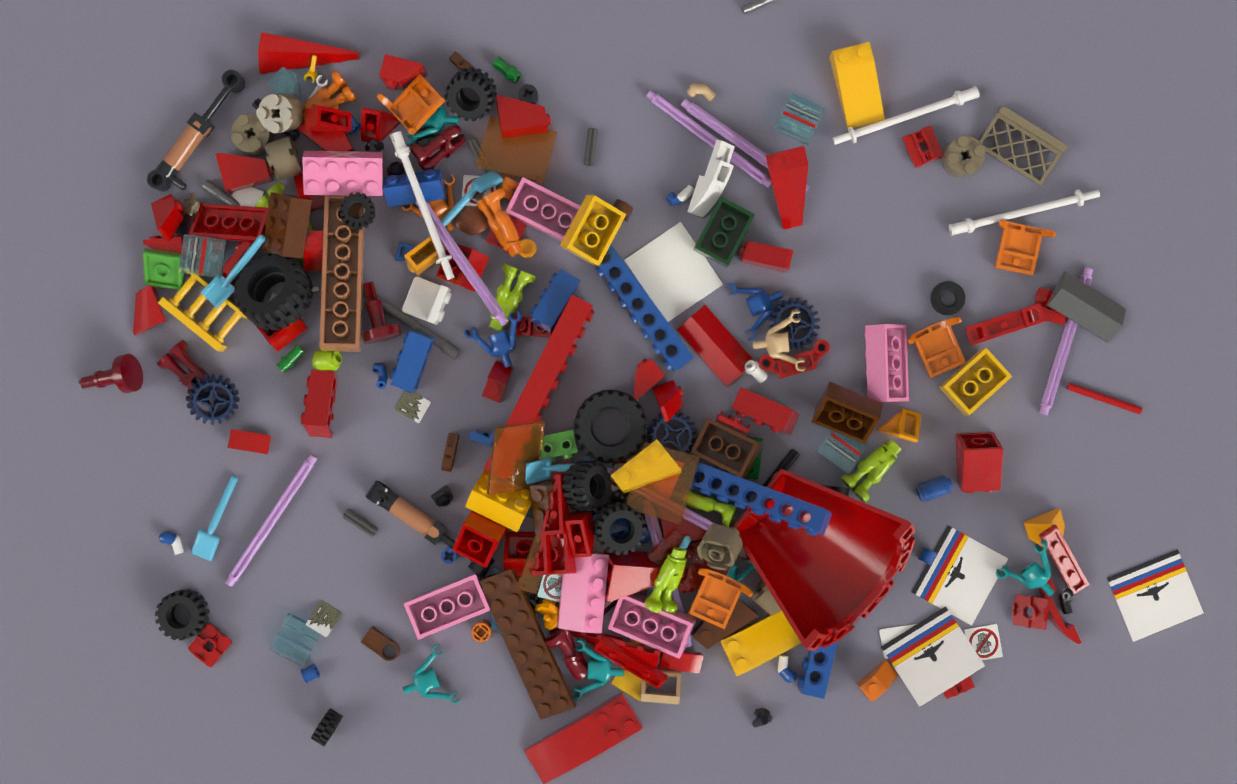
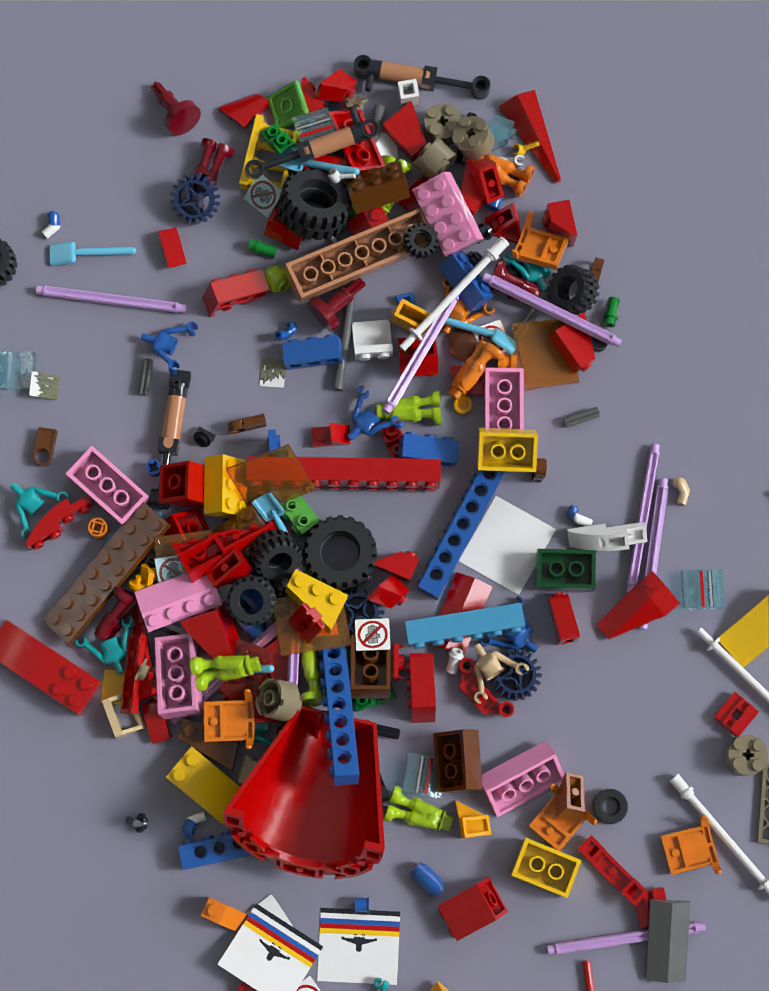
camera: 55 degrees right, 10 degrees down
(193, 295) = (276, 139): none -> green slope
(205, 151) = (408, 92): none -> white brick
(220, 257) = (321, 145): none -> black piece
(239, 334) = (263, 195): none -> clear light blue sticker
(257, 259) = (335, 177): none -> white hand
(339, 490) = (166, 344): none -> blue piece
(457, 672) = (49, 525): none -> red slope
(481, 123) = (552, 310): none -> lavender piece
(634, 654) = (142, 671): none -> dark tan plate
(664, 488) = (307, 622): none -> red piece
(699, 433) = (372, 634): none -> sticker
(730, 346) = (465, 625): none -> dark azure brick
(926, 329) = (570, 797): none -> dark orange slope

